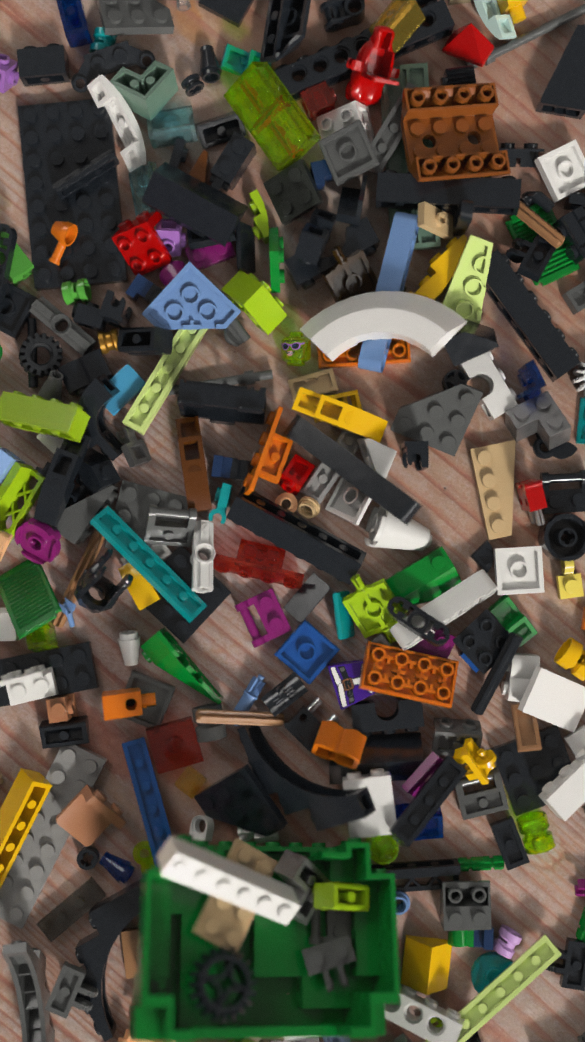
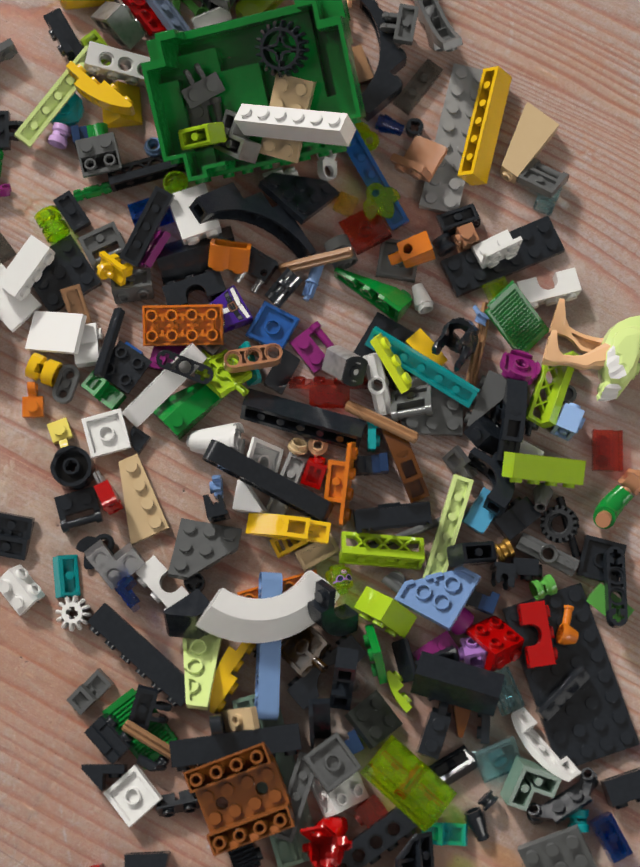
camera: 165 degrees right, 10 degrees down
(88, 705) = (444, 244): none -> black wheel
(95, 219) = (536, 615): none -> red arch
(149, 769) = (382, 203): none -> clear neon green plate
(182, 575) = (391, 363): none -> neon yellow plate
(209, 511) = (381, 421): none -> medium nougat axle
(235, 584) = (344, 365): none -> piece
(243, 361) = (385, 557): none -> lime fence
(314, 305) = (322, 610): none -> black arch
(326, 615) = (260, 351): none -> nougat beam
(408, 481) = (216, 486): none -> medium blue plate
(450, 982) = (103, 95): none -> yellow slope
(554, 638) = (64, 384): none -> dark grey plate

